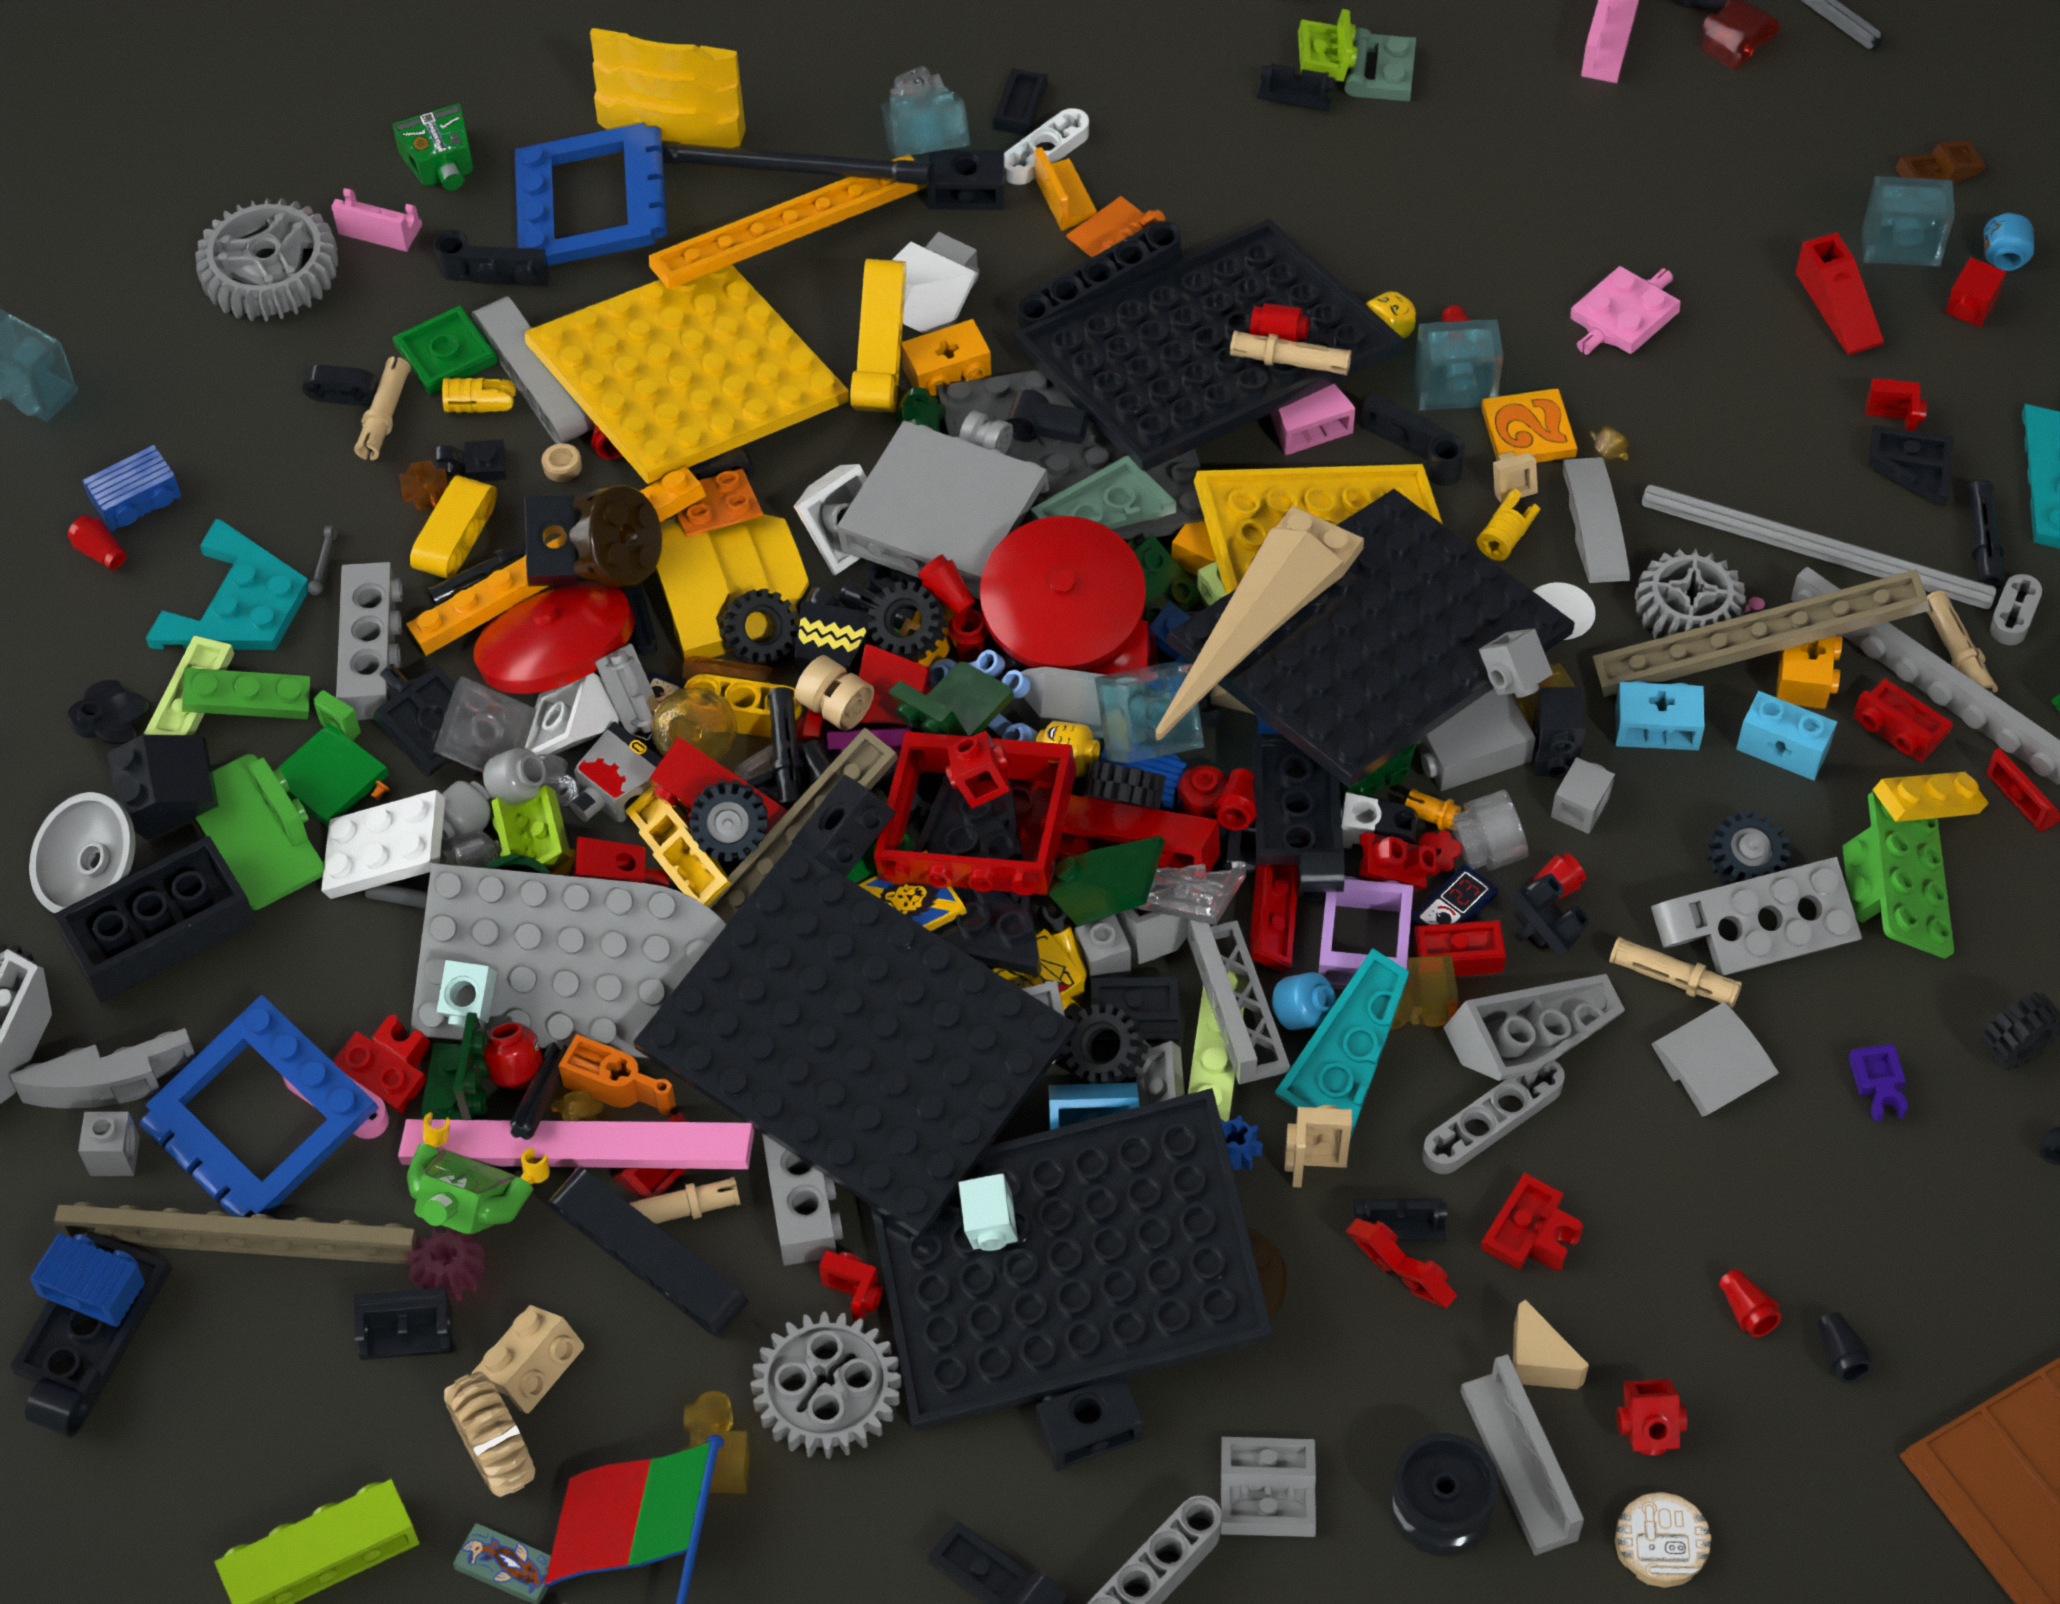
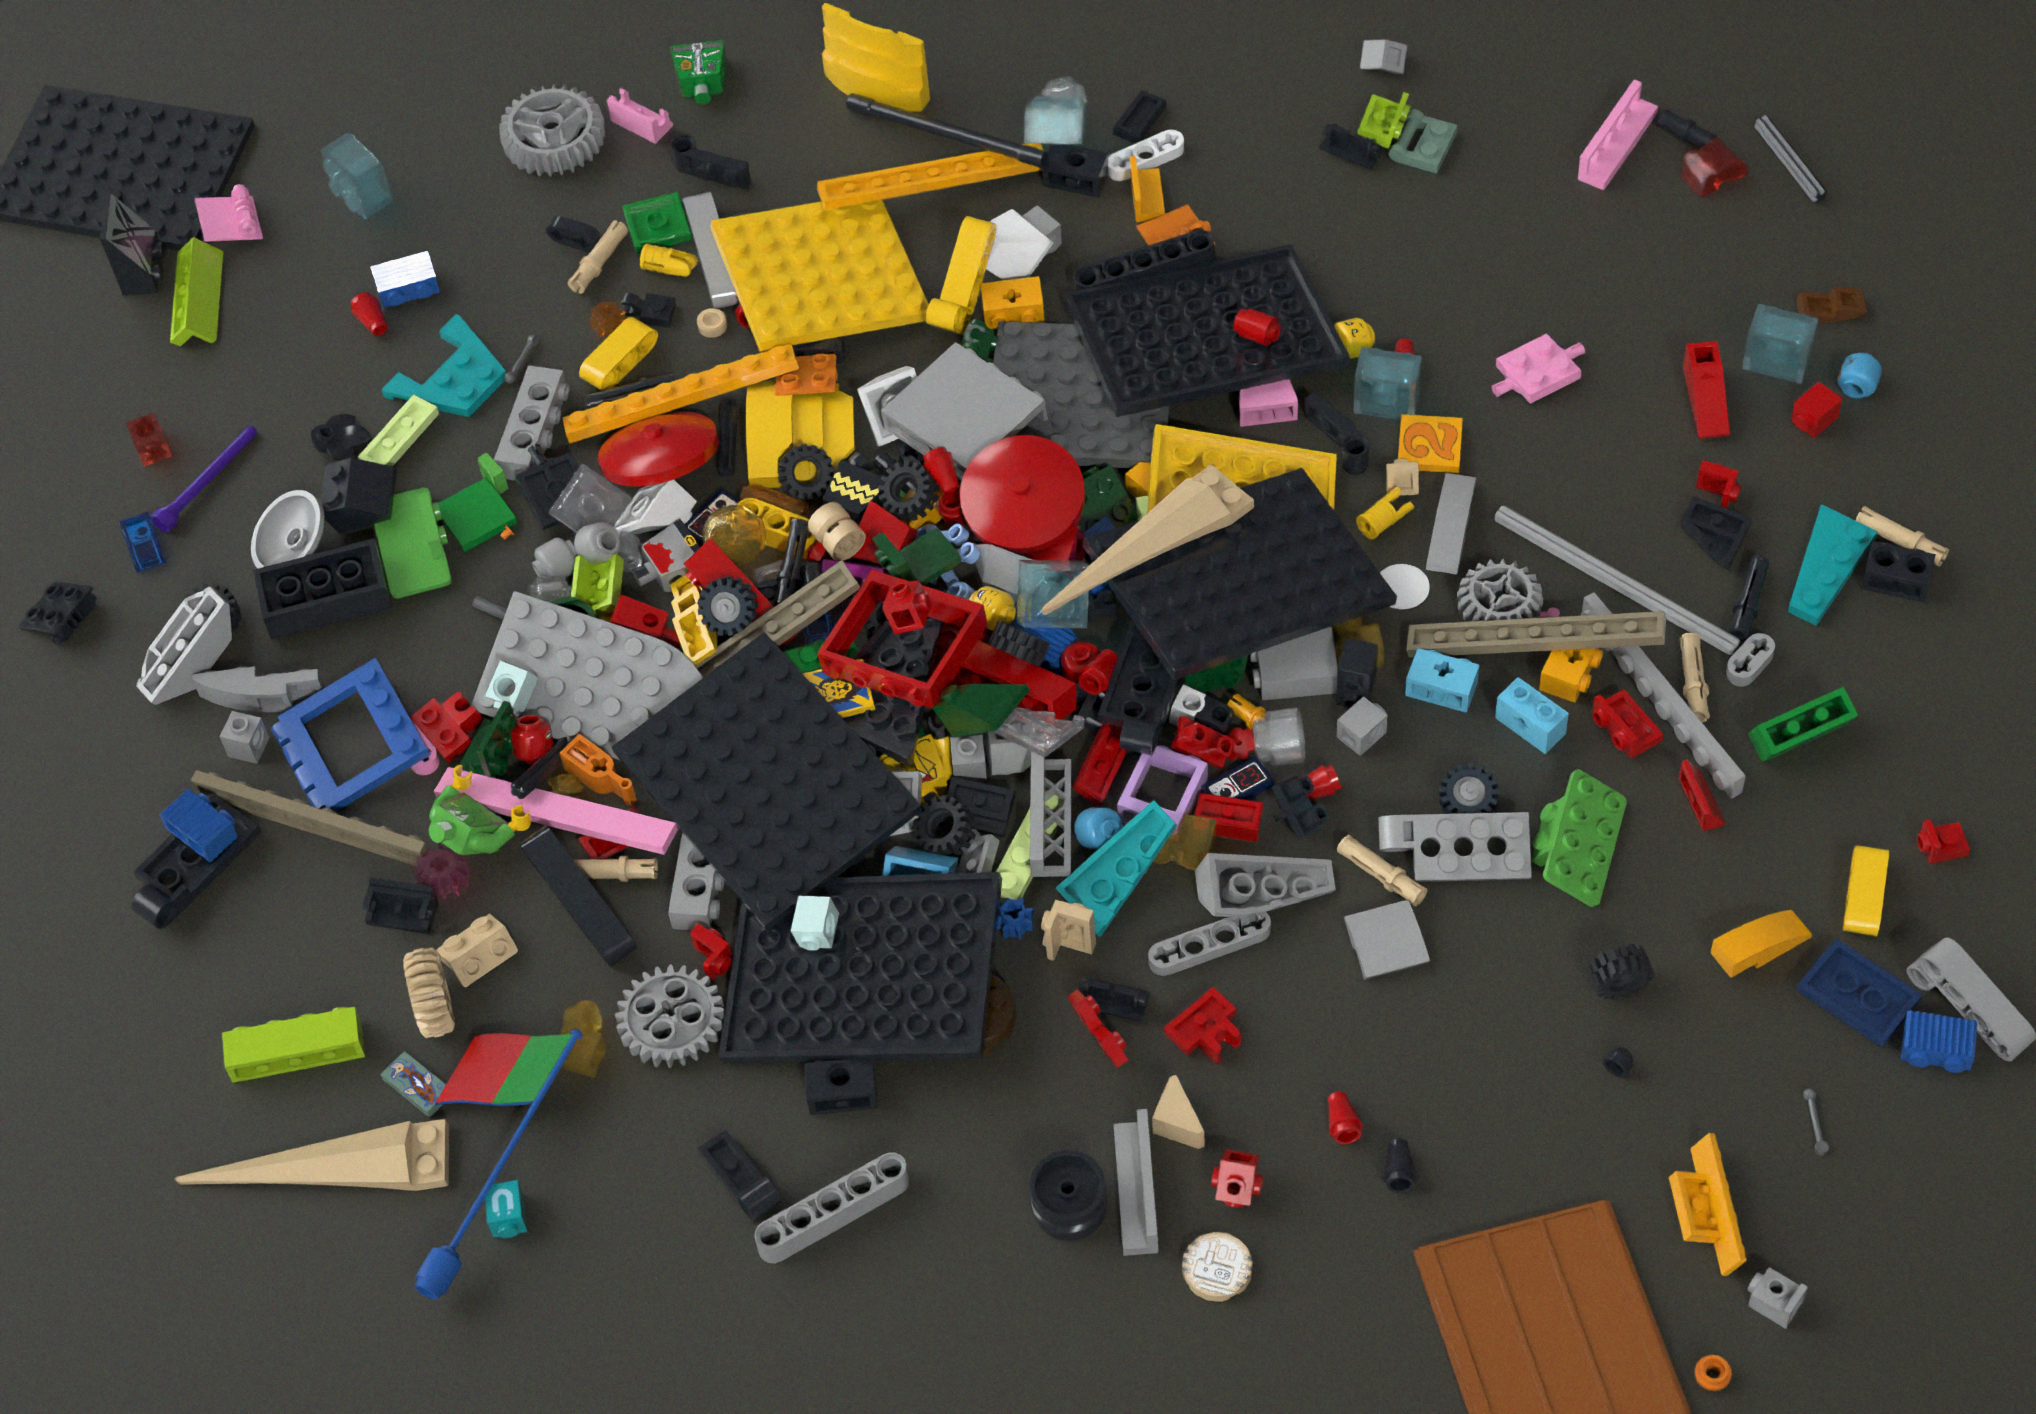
camera: 20 degrees right, 0 degrees up
(246, 693) = (435, 443): bright green plate -> none
(383, 844) = (493, 571): white plate -> none
(542, 518) = (673, 361): black brick -> none
(598, 542) = (703, 380): dark brown plate -> none
(628, 689) = (695, 496): light grey hinge -> none
(643, 192) = (834, 134): blue hinge -> none
(844, 826) = (803, 628): black brick -> none
(985, 432) = (1014, 364): light grey wheel -> none
(1035, 416) = (1057, 359): black piece -> none
(1111, 497) = (1085, 431): sand green wing -> none
(1268, 1486) = (951, 1161): light grey slope -> none
(1282, 351) = (1246, 345): tan pin -> none
(1516, 663) = (1332, 616): light grey brick -> none
(1610, 443) = (1486, 467): clear yellow plate -> none
(1881, 1075) = (1503, 981): dark purple plate -> none
(1930, 796) = (1620, 784): yellow plate -> none

